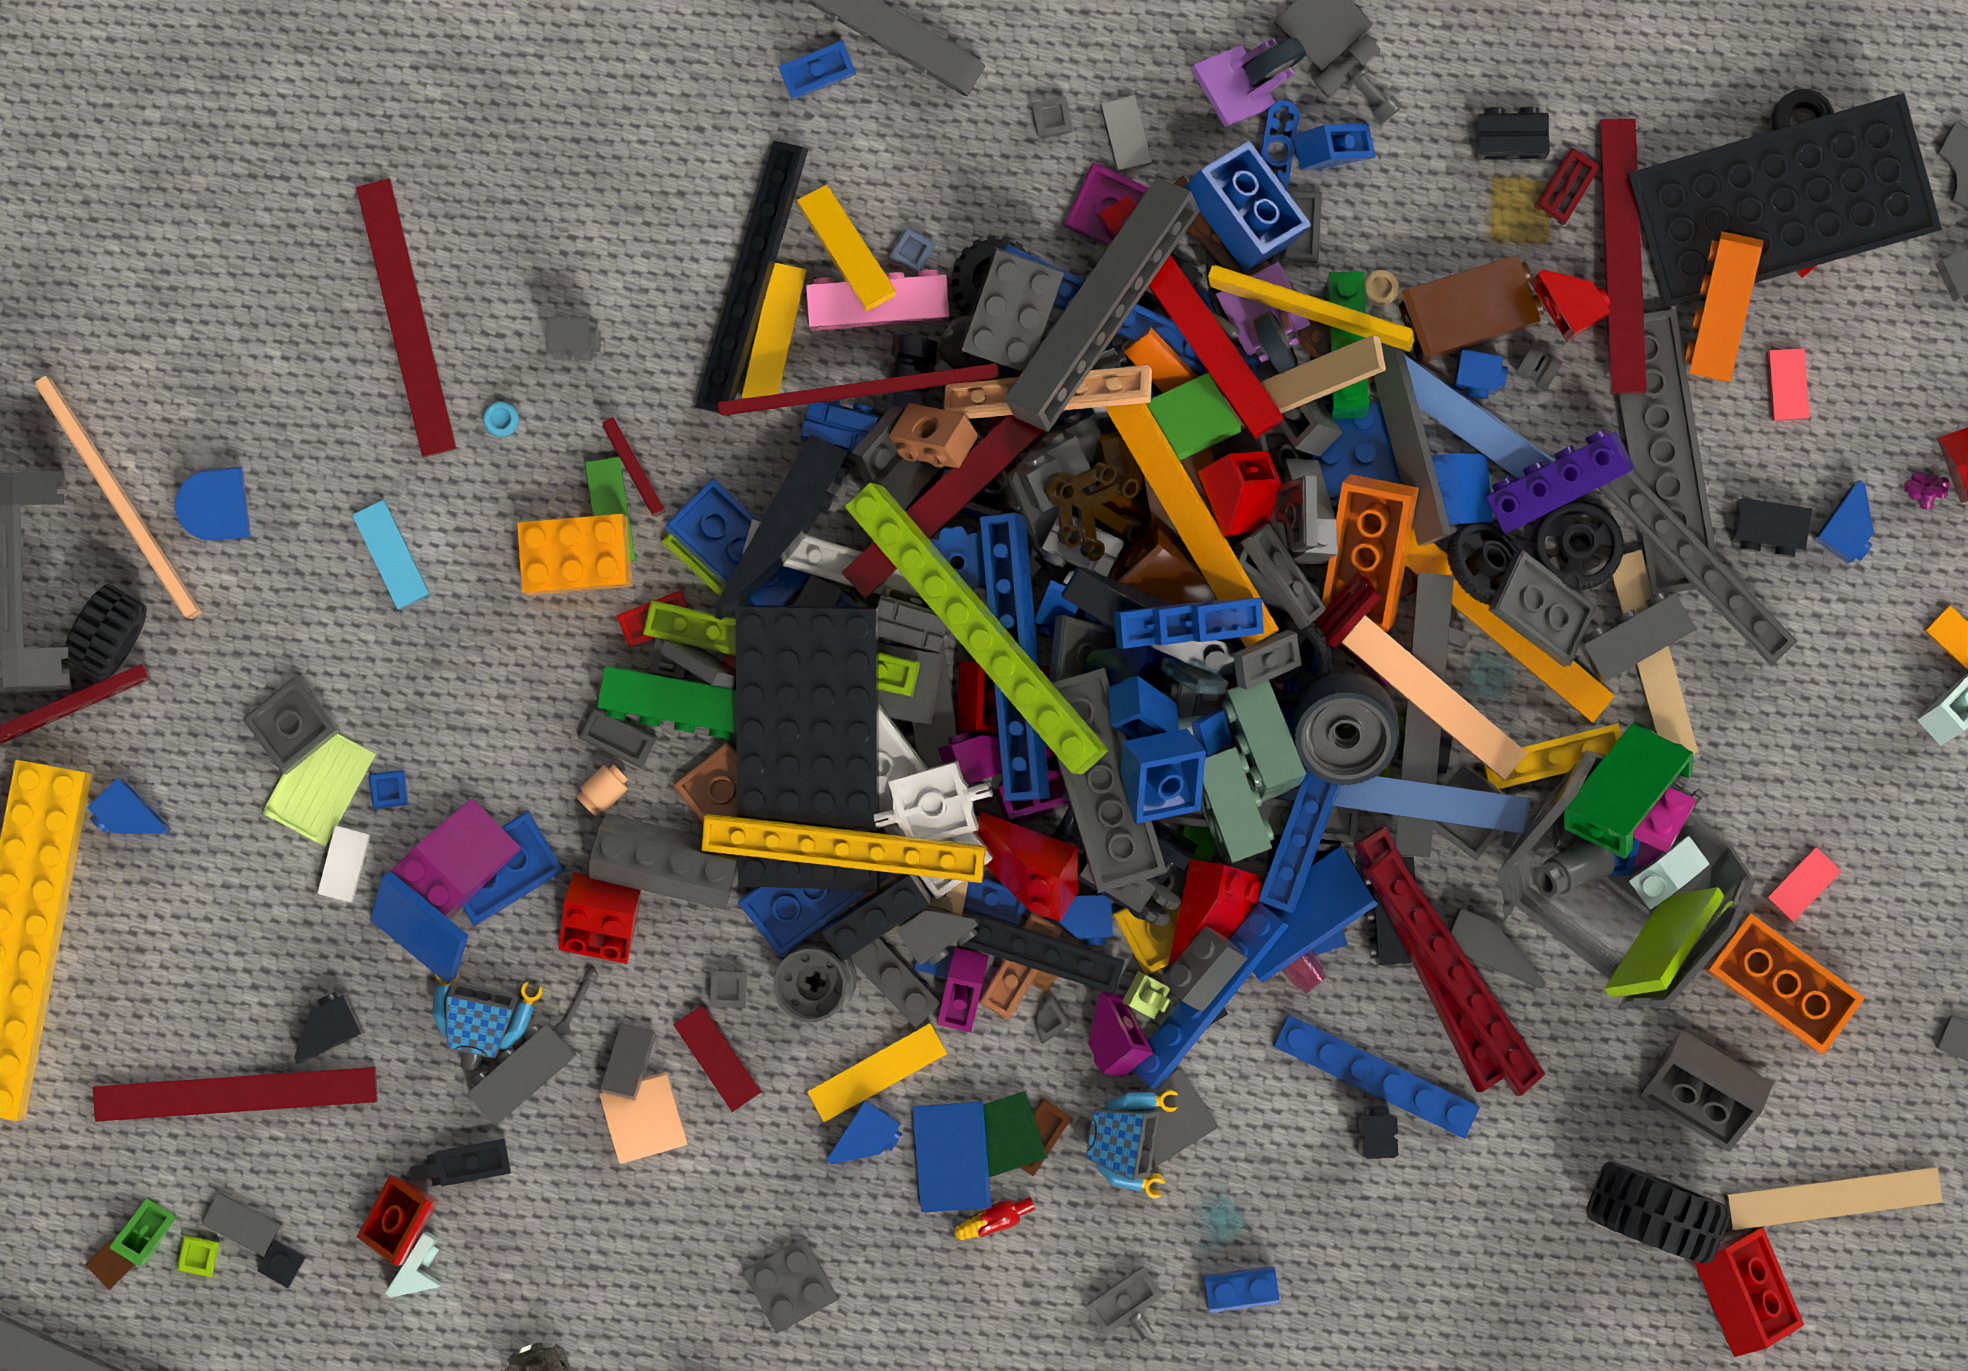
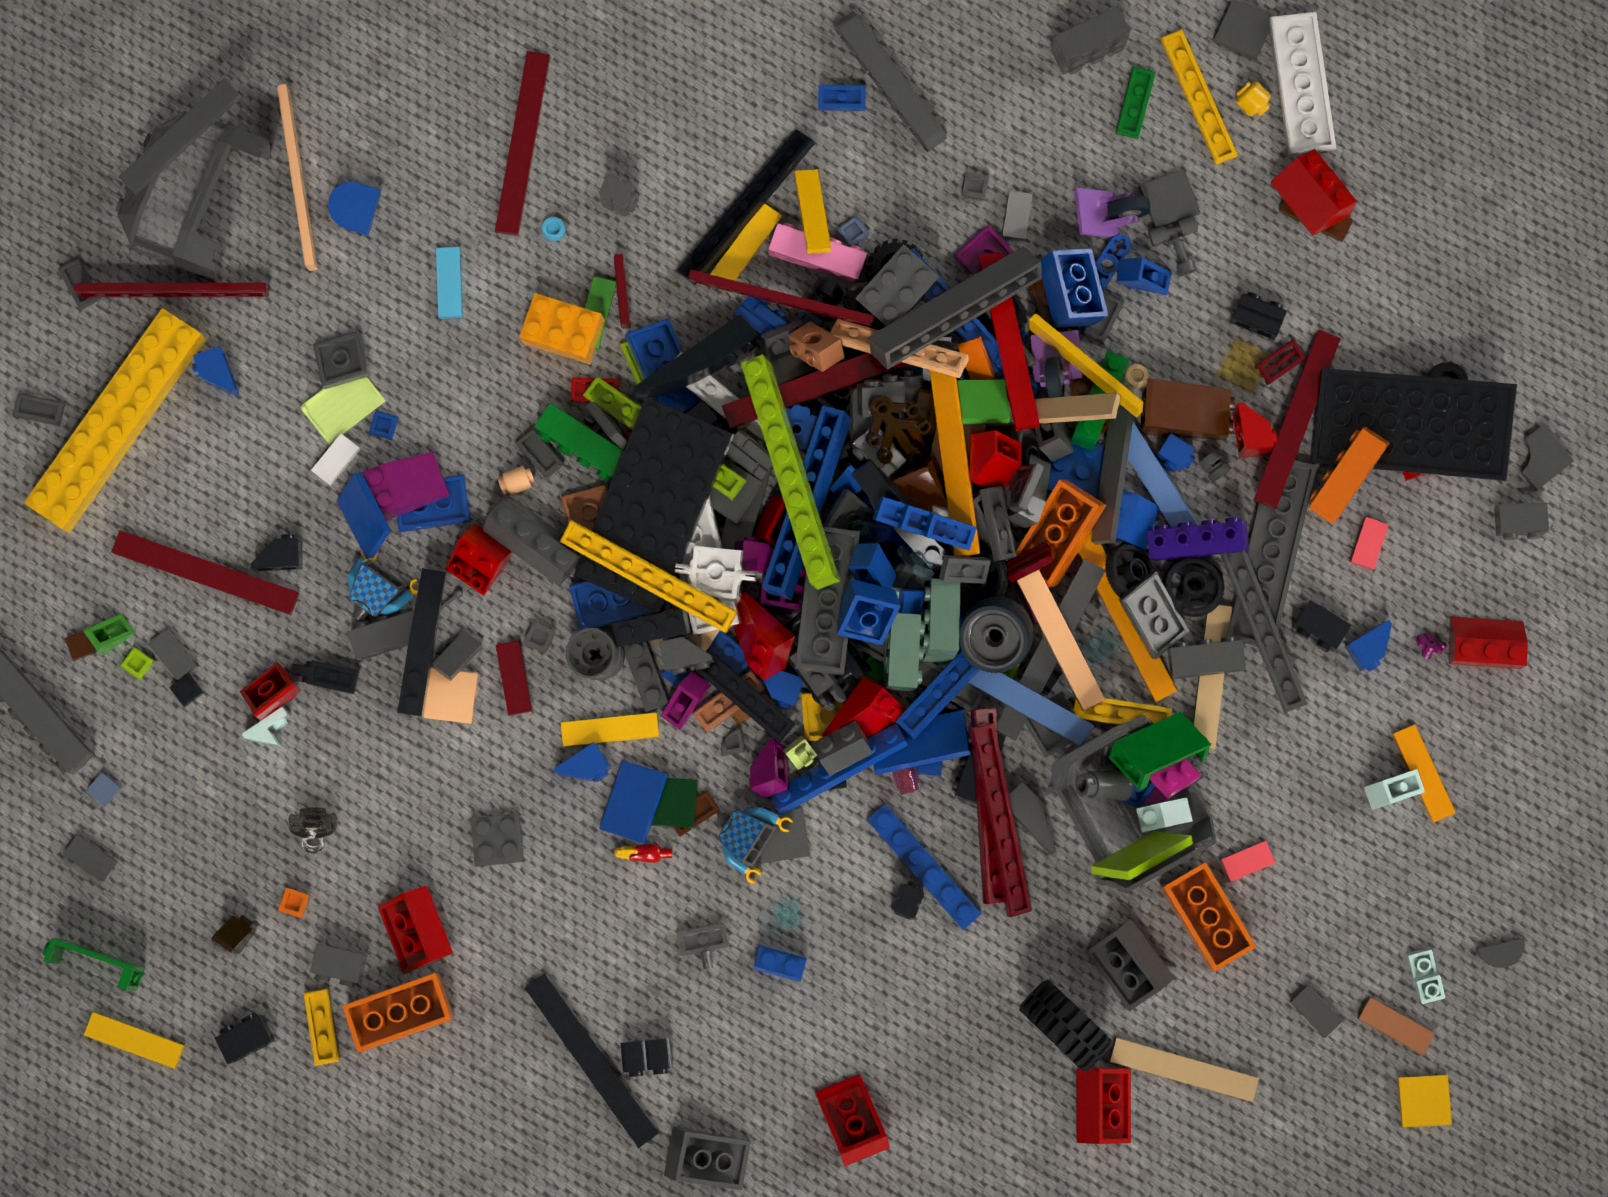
camera: 25 degrees right, 5 degrees down
(105, 632) = (251, 253): black tyre -> none
(575, 1067) = (421, 643): none -> black slope

